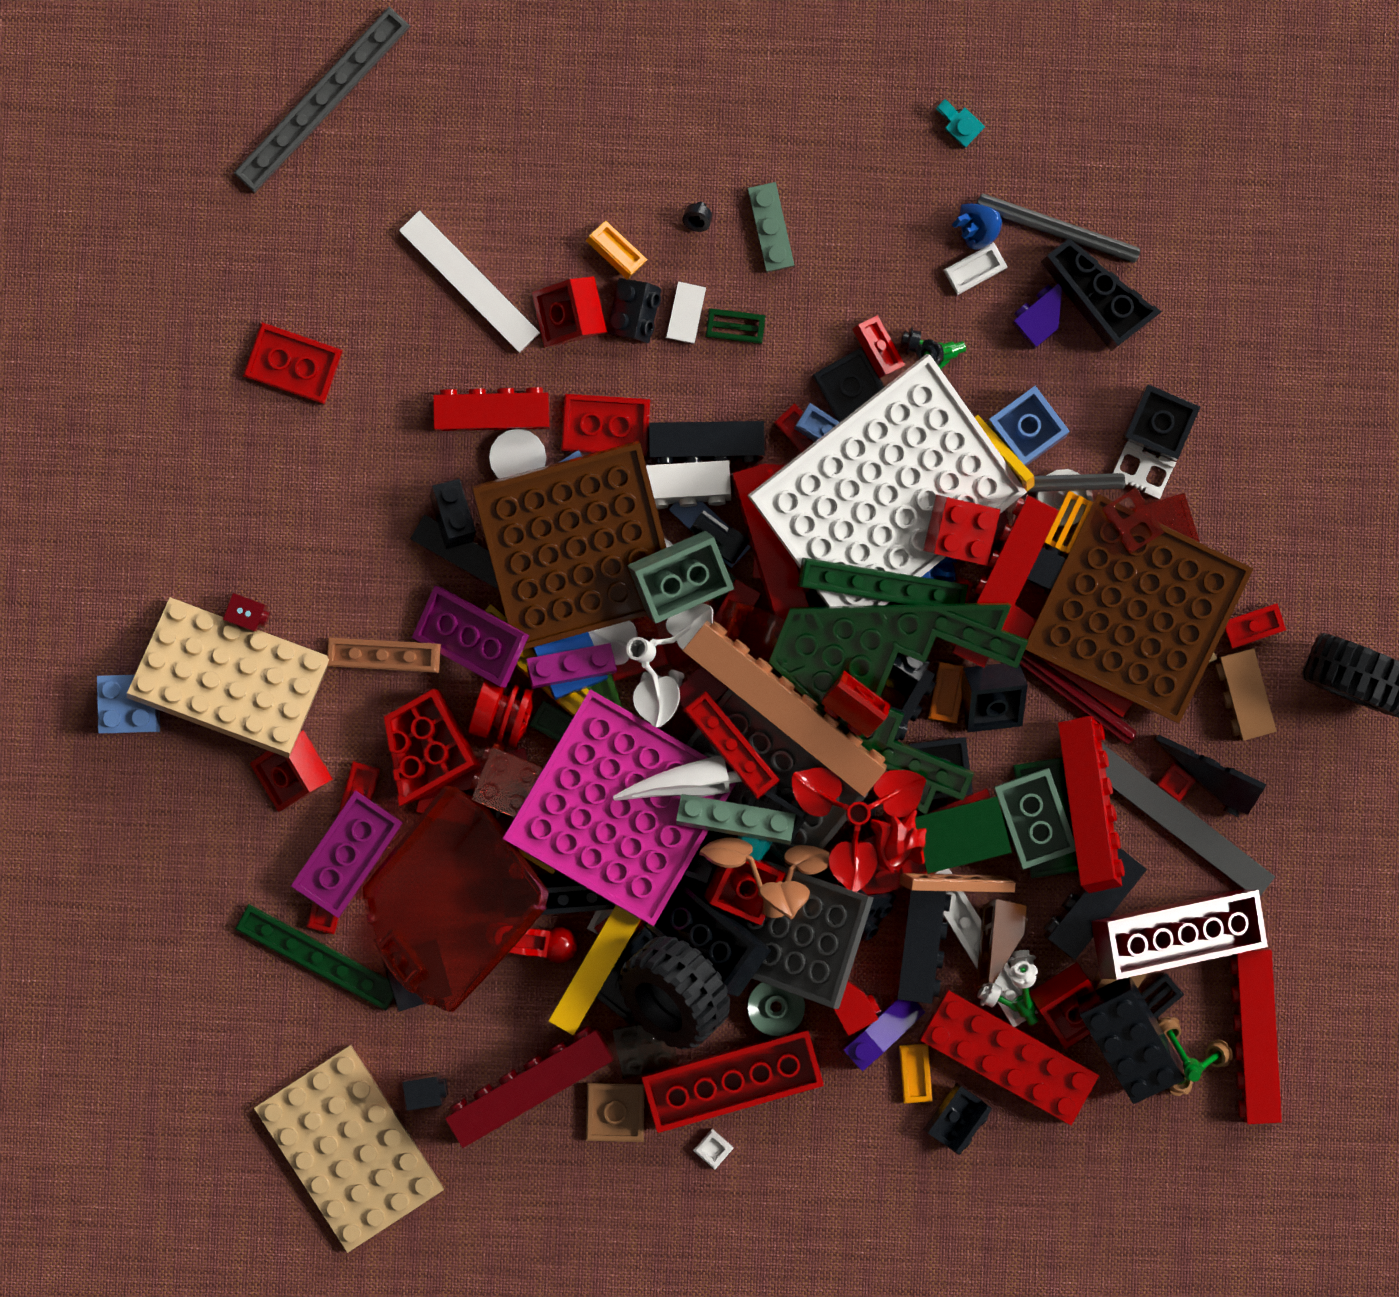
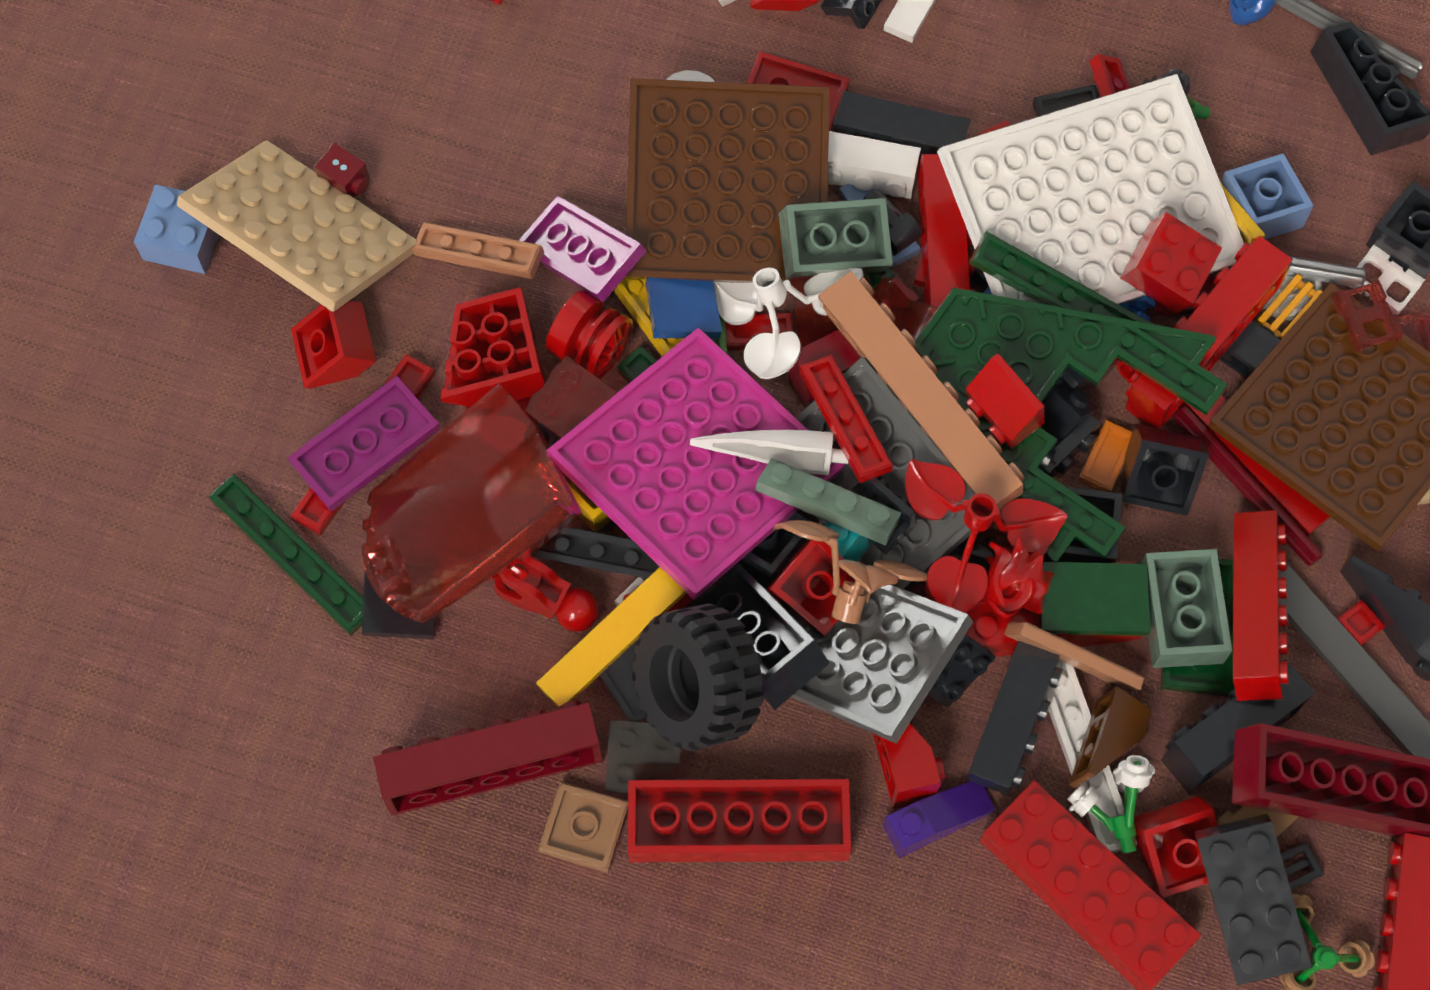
camera: 15 degrees right, 20 degrees down
(349, 1148) = (249, 784): tan plate -> none
(425, 1091) = (360, 728): black brick -> none
(452, 513) = (600, 127): black brick -> none
(466, 556) = (591, 171): black tile -> none
(491, 411) = (674, 45): red brick -> none
(571, 665) = (683, 305): magenta plate -> none
(713, 1148) = (691, 904): white tile -> none
(735, 337) = (959, 39): dark green tile -> none
(773, 1022) = (818, 734): sand green dish -> none
(915, 1073) = (966, 881): light orange tile -> none
(958, 1119) = (1006, 948): black bracket -> none
(975, 269) = (1236, 43): white tile -> none
(1040, 319) = (1298, 102): dark purple slope -> none

